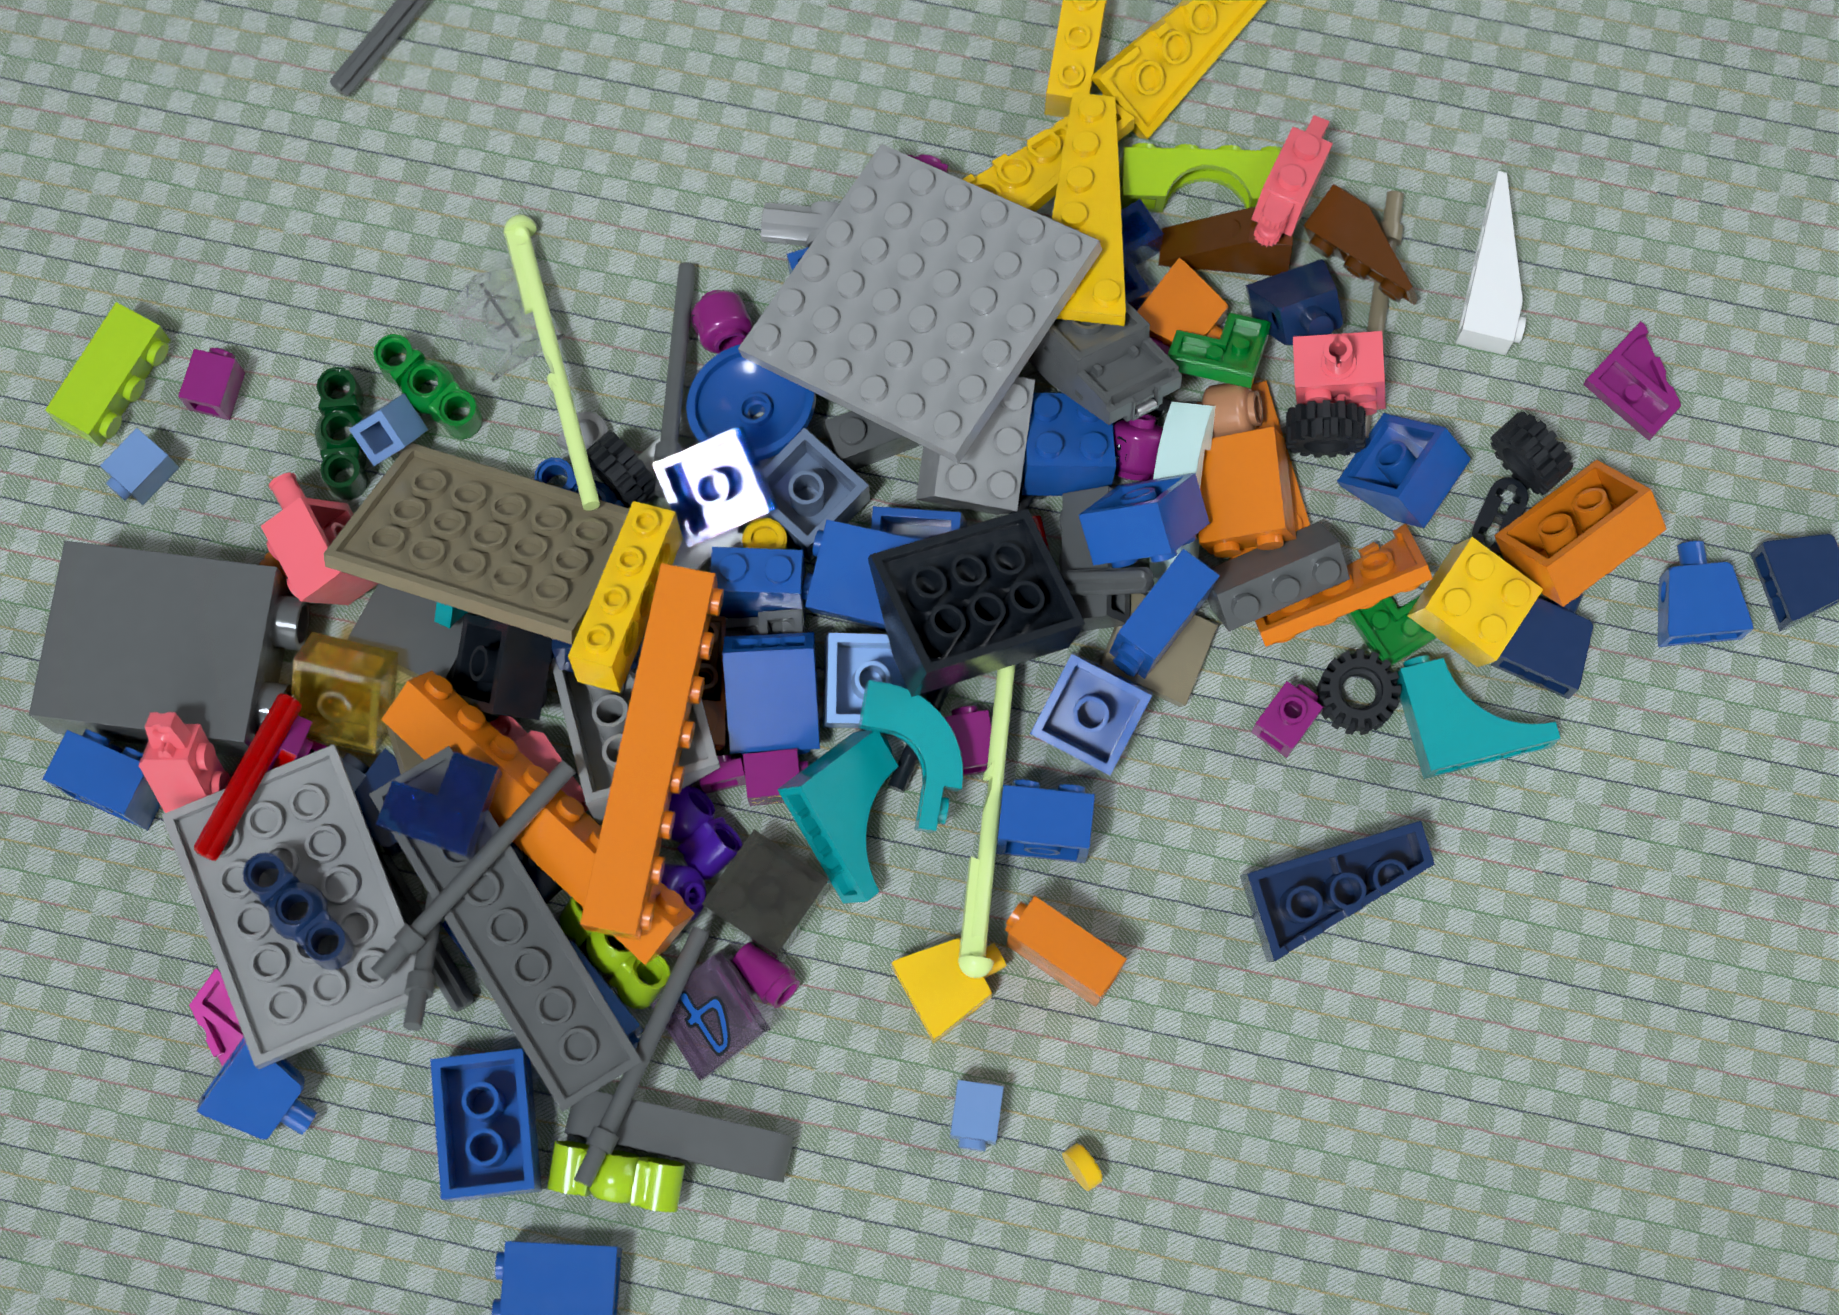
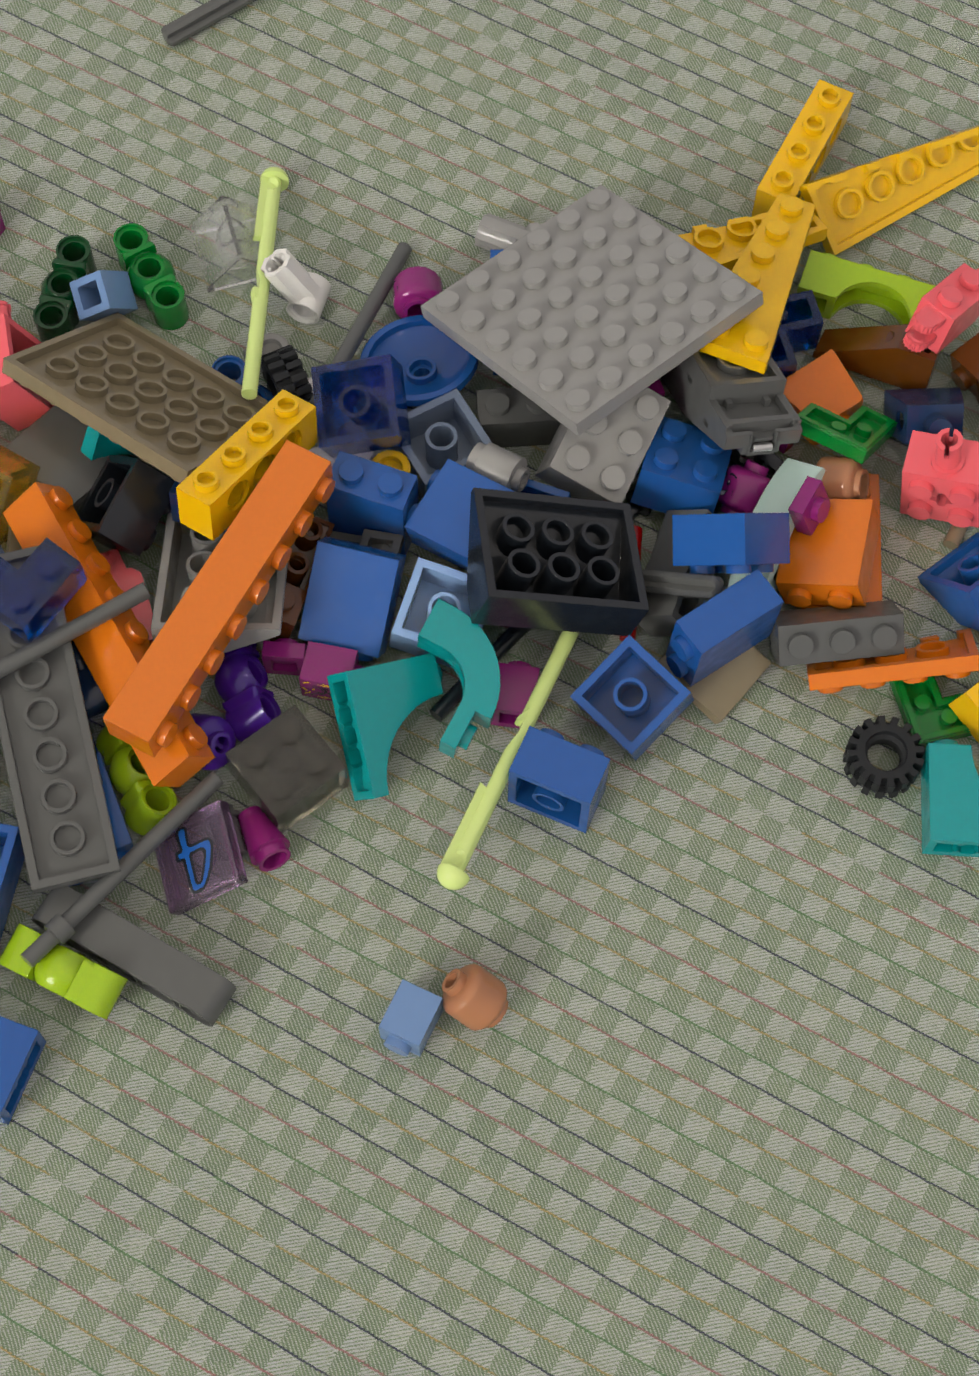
camera: 15 degrees right, 10 degrees down
(595, 354) = (302, 289): none -> white piece
(880, 510) = (499, 465): none -> light grey brick
(939, 987) = (417, 900): yellow torso -> none
(1032, 1073) = (474, 997): none -> nougat head
(1063, 950) = (539, 895): orange brick -> none
(1082, 1166) = (493, 1098): yellow tile -> none
(1212, 454) = (809, 506): none -> magenta plate
(1287, 718) = (810, 759): magenta brick -> none
(1317, 890) = (801, 913): dark blue wedge -> none
(1325, 429) = (920, 523): black tyre -> none

